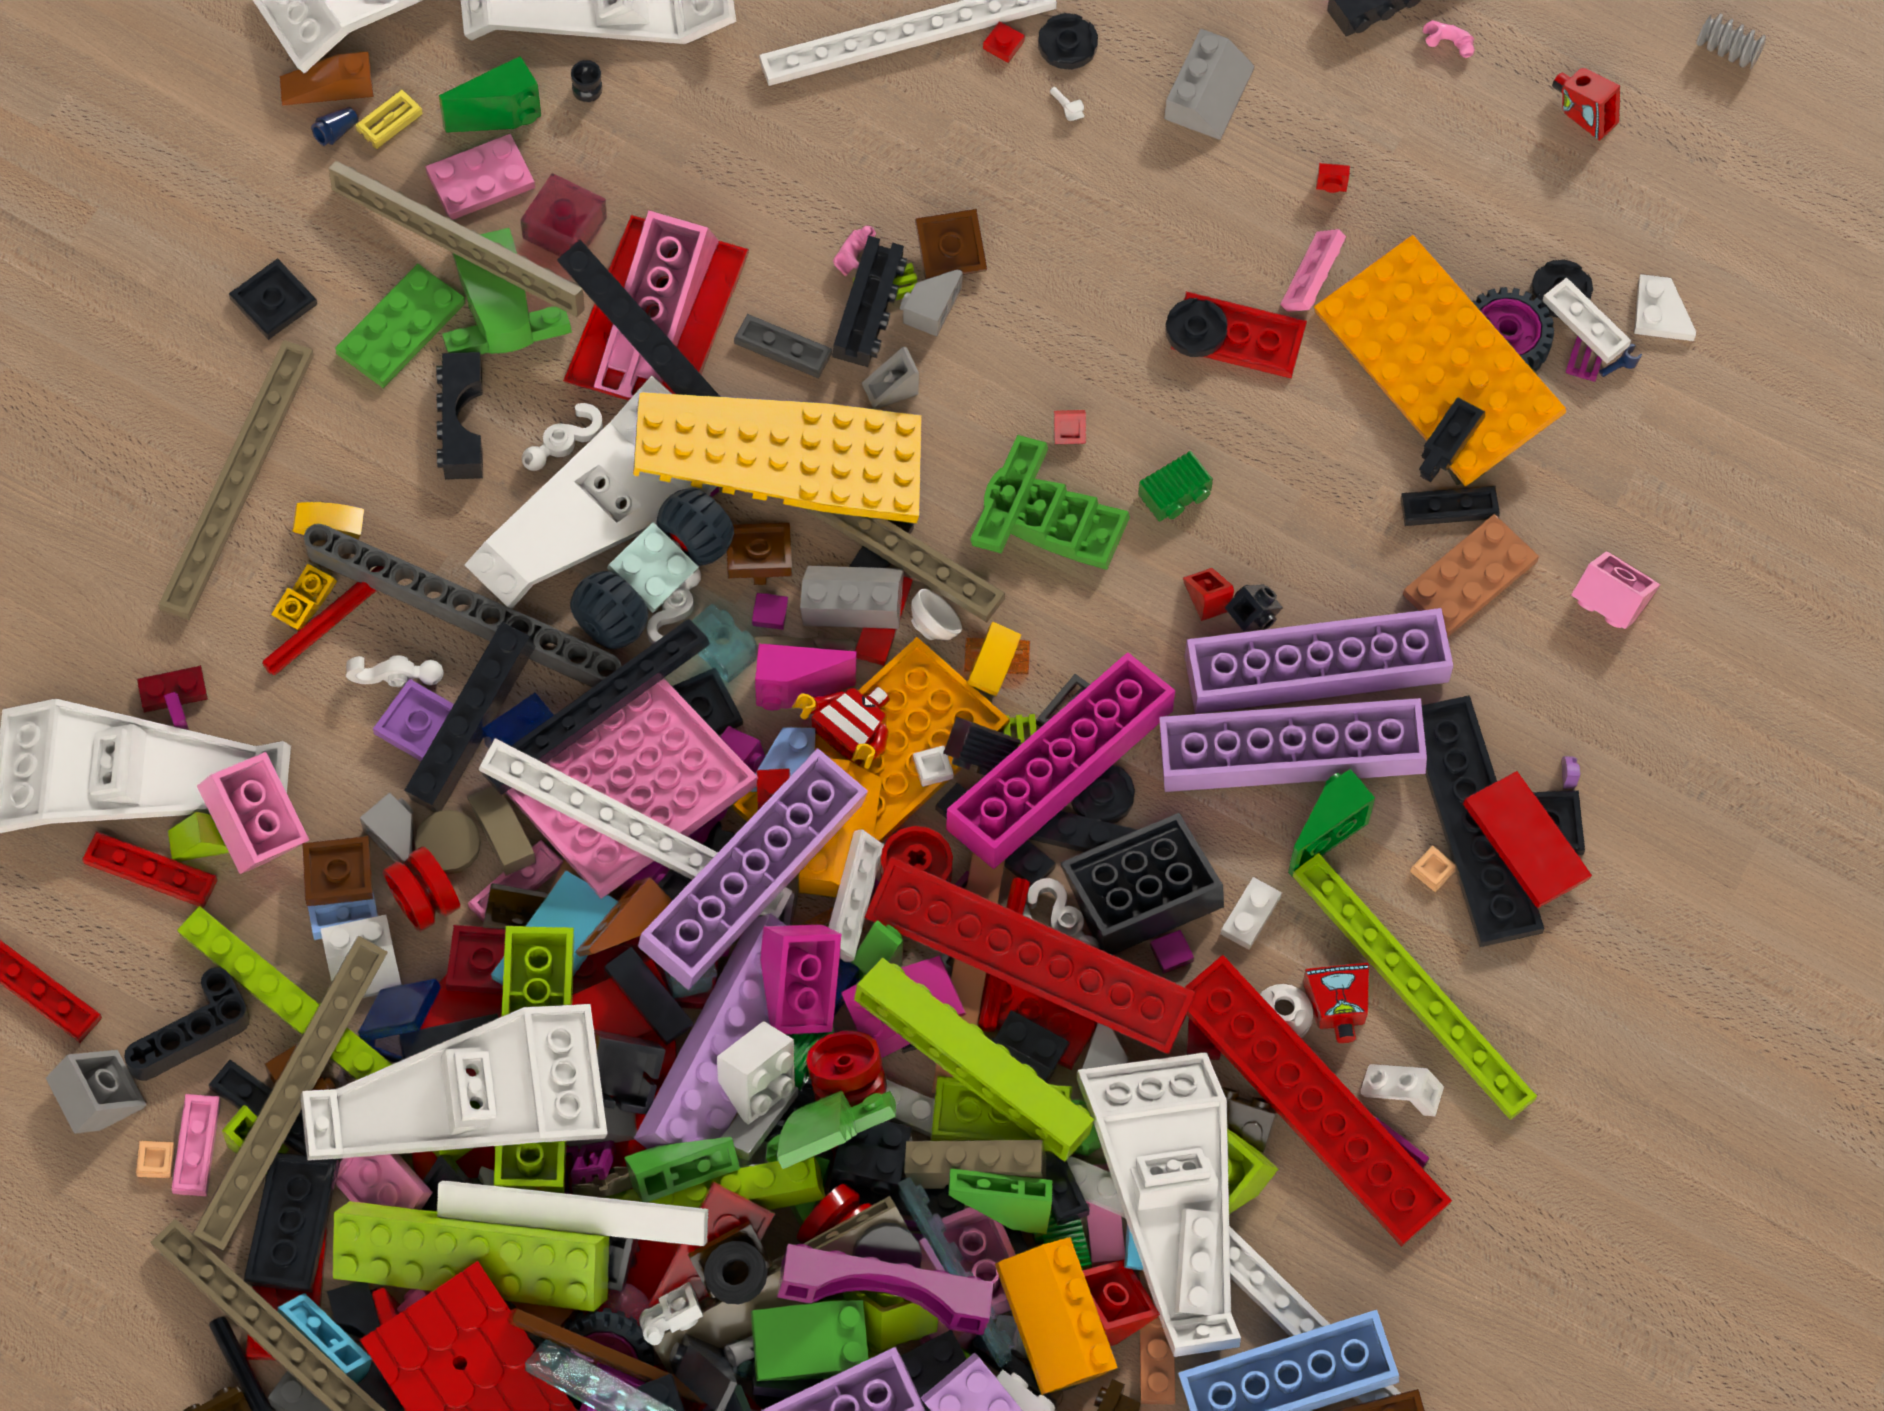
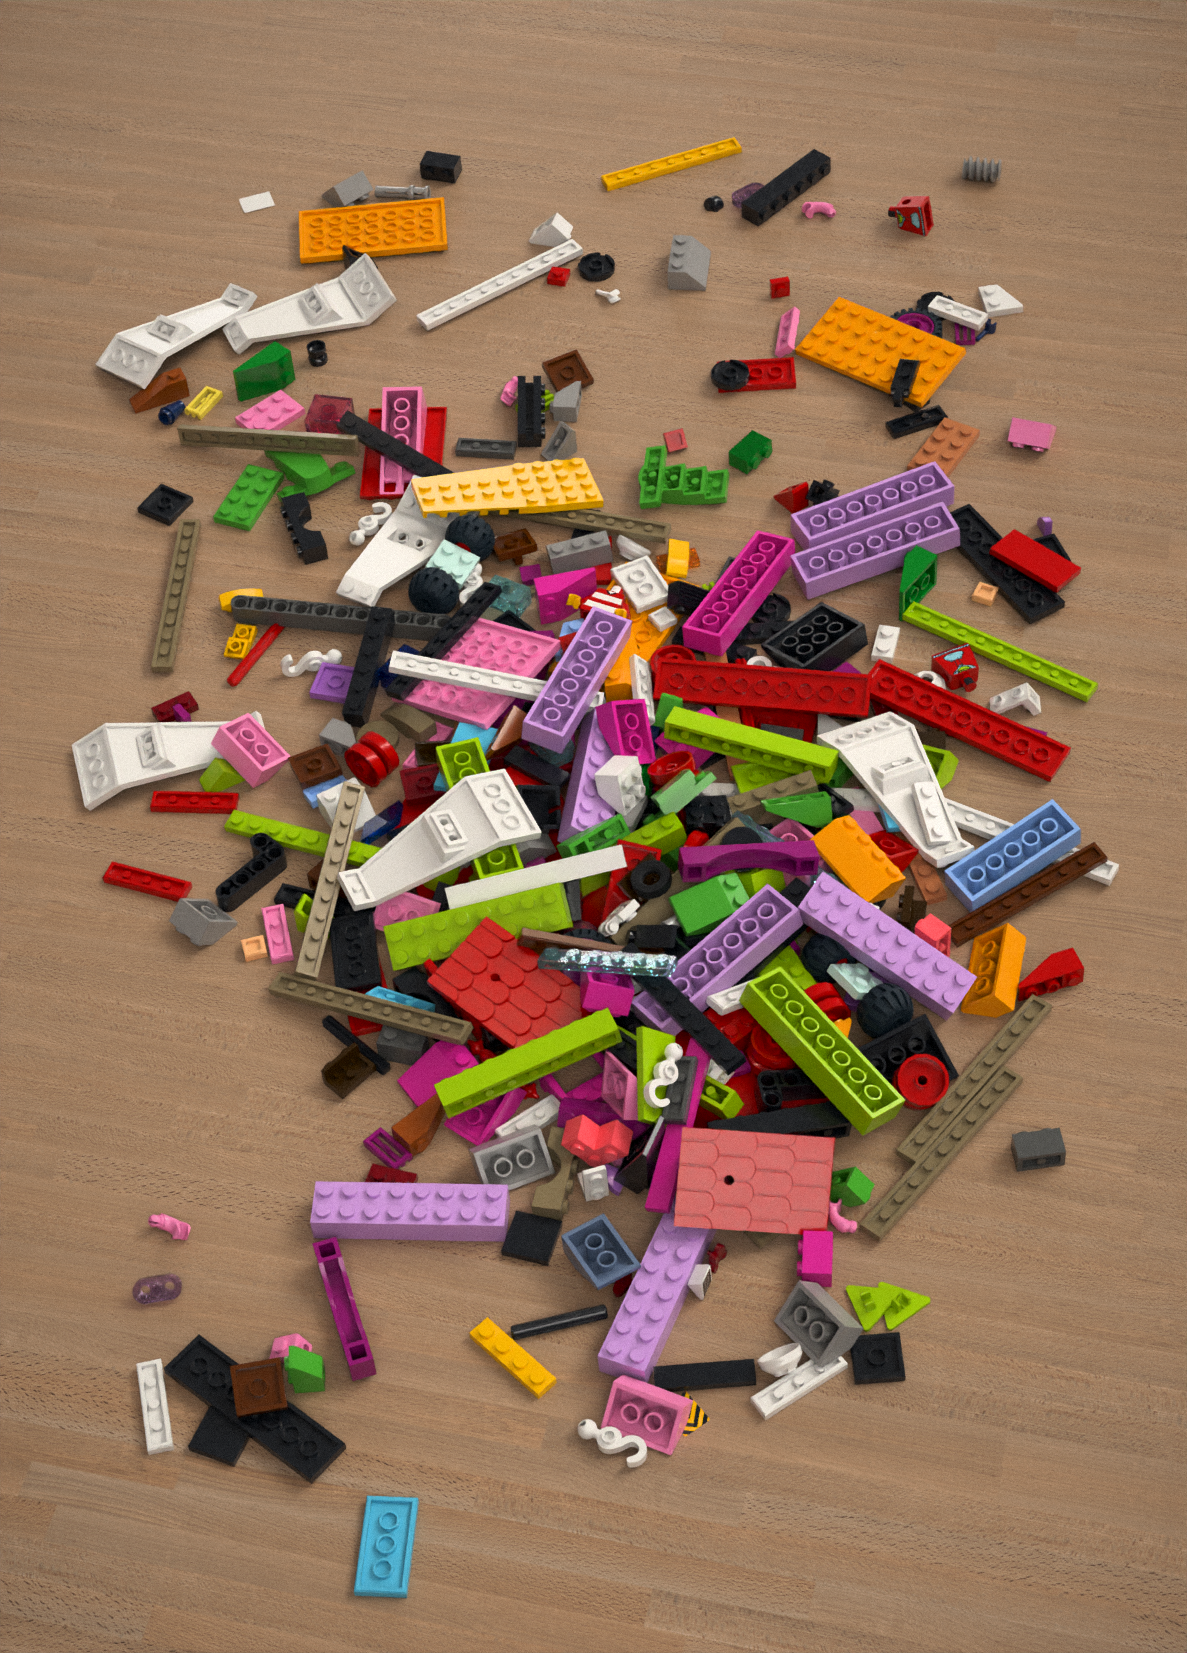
camera: 10 degrees left, 15 degrees down
(924, 689) = (641, 584): none -> white tile

